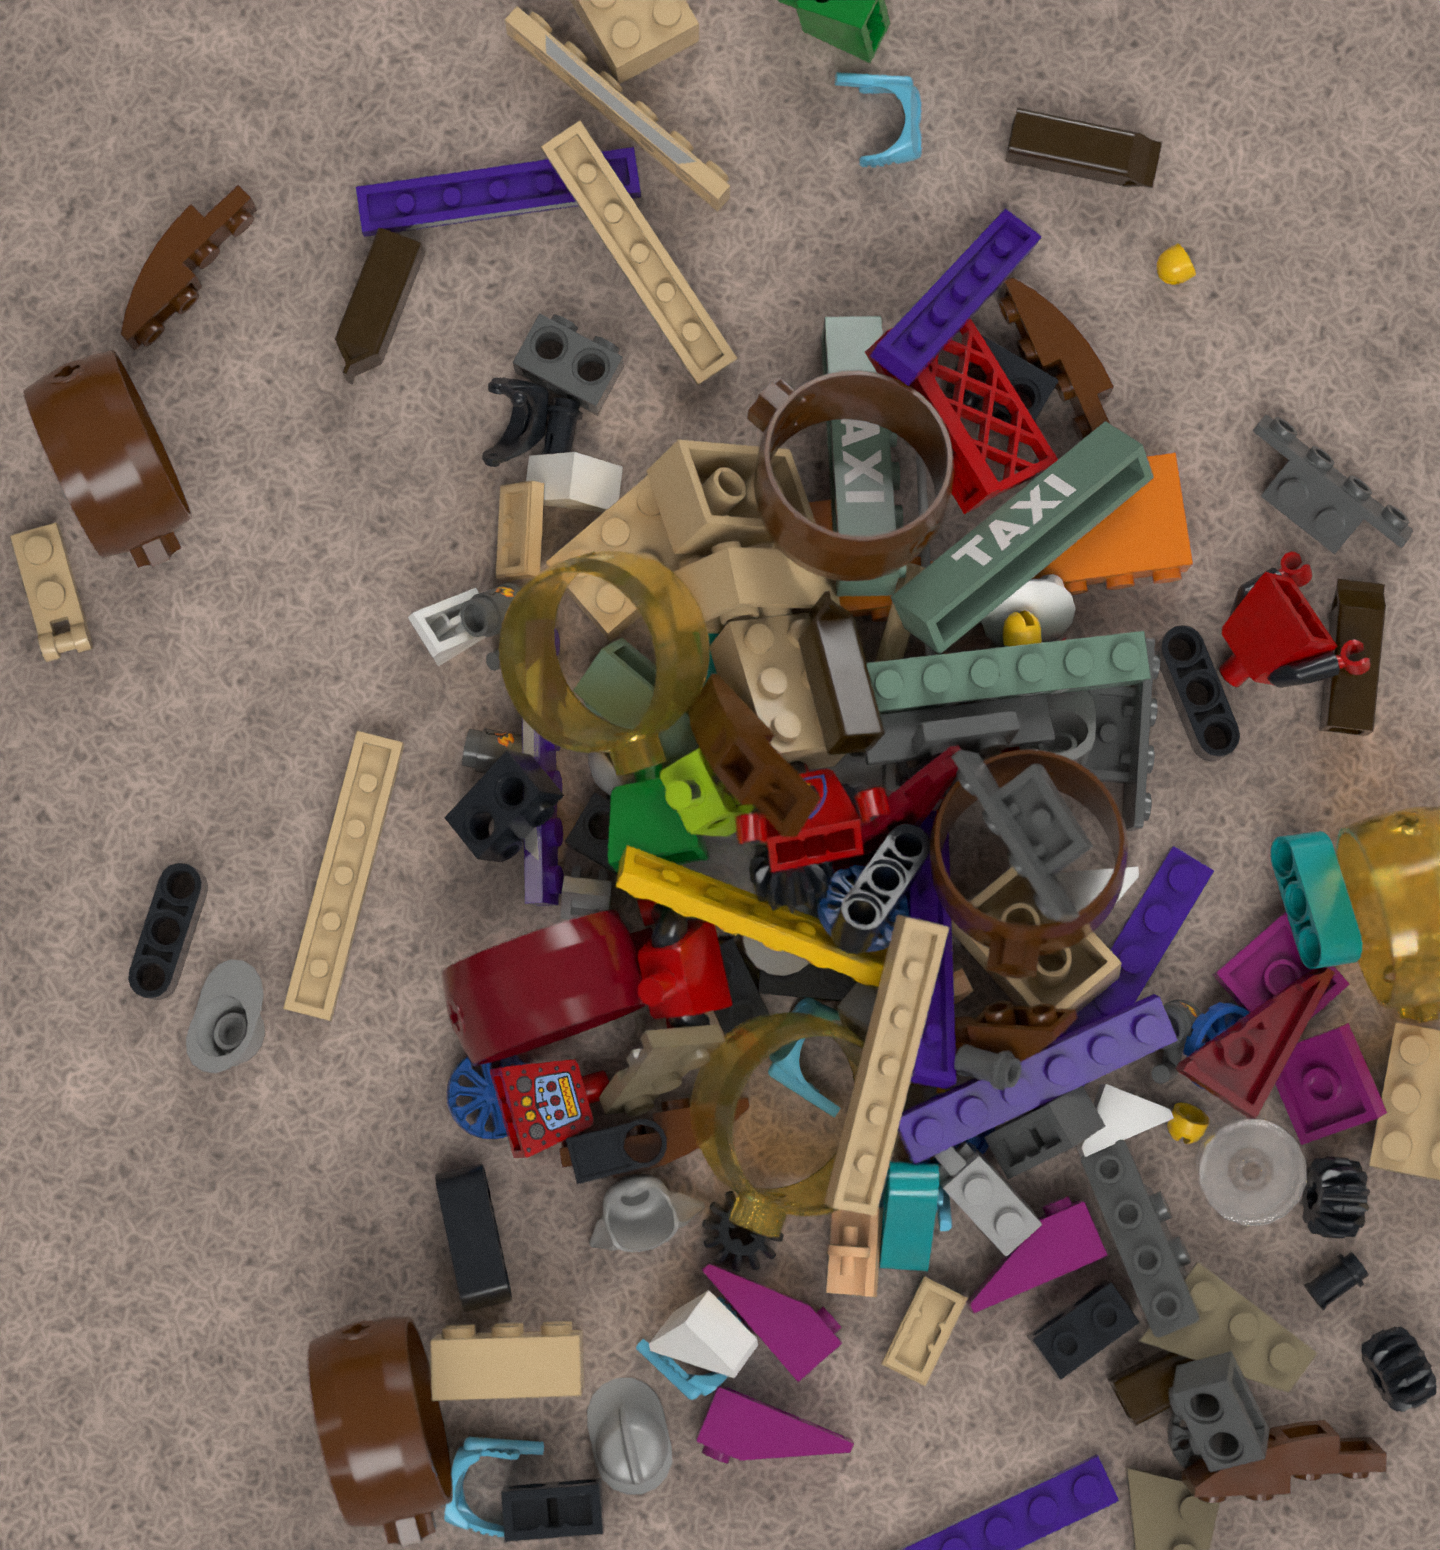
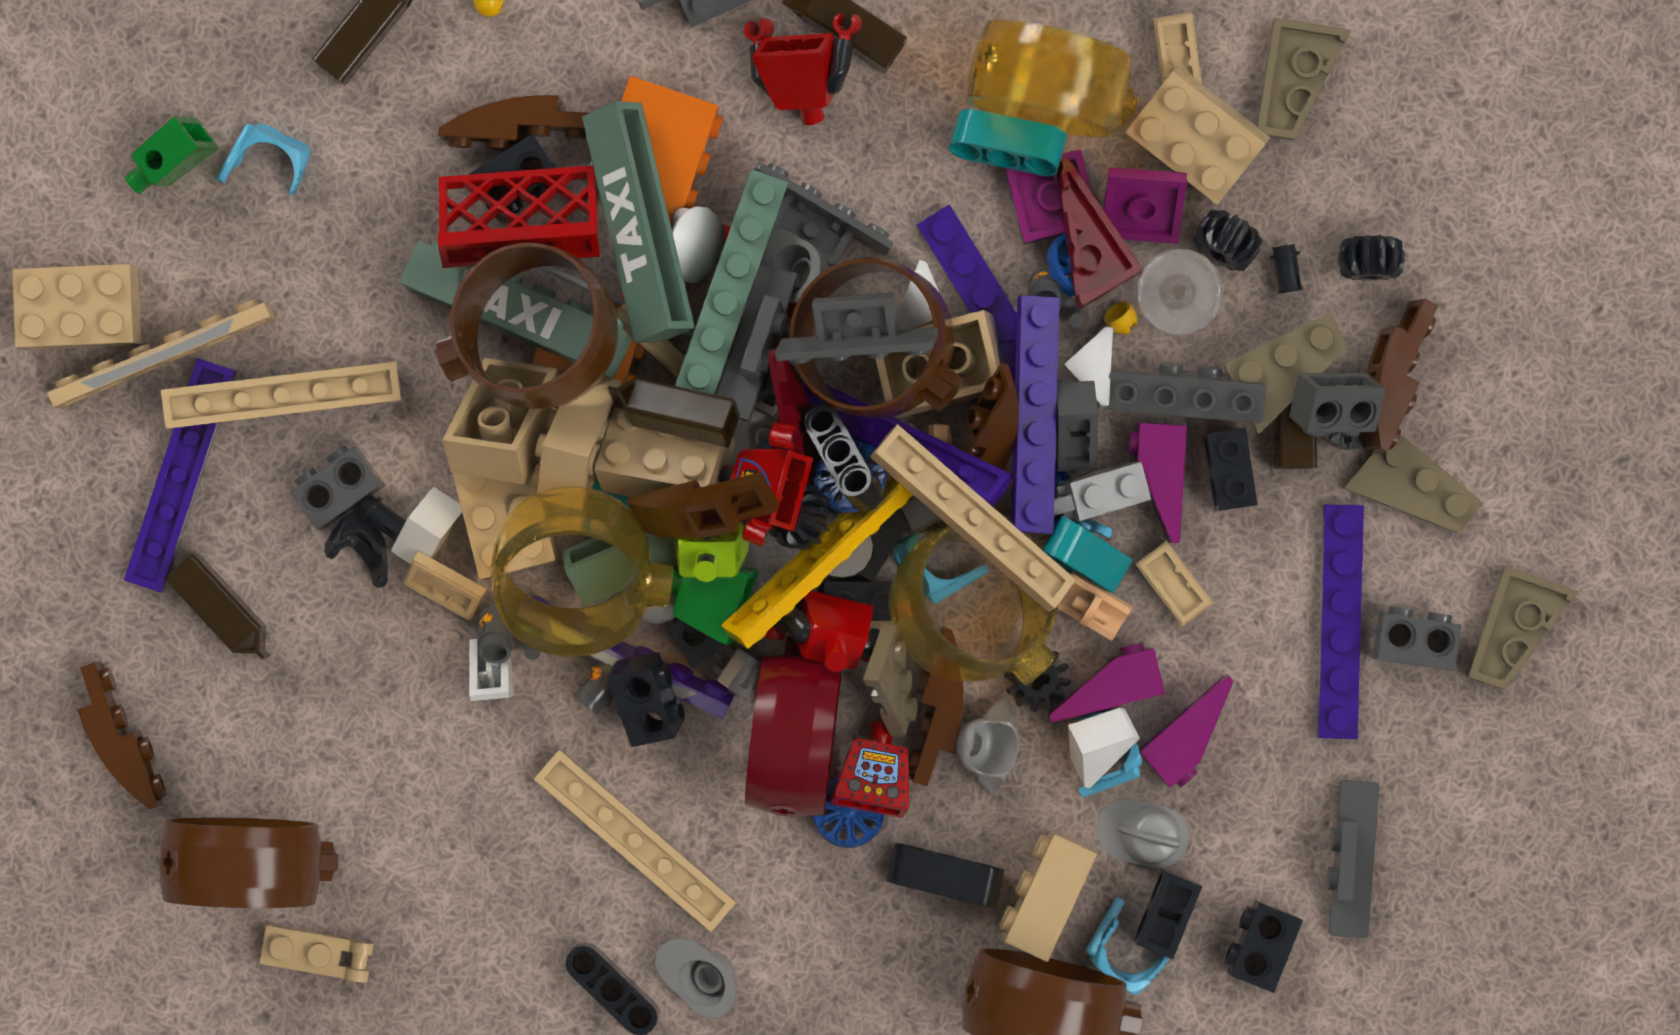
camera: 60 degrees left, 5 degrees up
(603, 1152) = (932, 751): black piece -> none
(955, 297) = (435, 180): dark purple plate -> none
(1000, 1069) = (1016, 438): dark grey pin -> none
(1021, 629) = (705, 256): yellow hinge -> none
(1199, 670) = (798, 138): black beam -> none

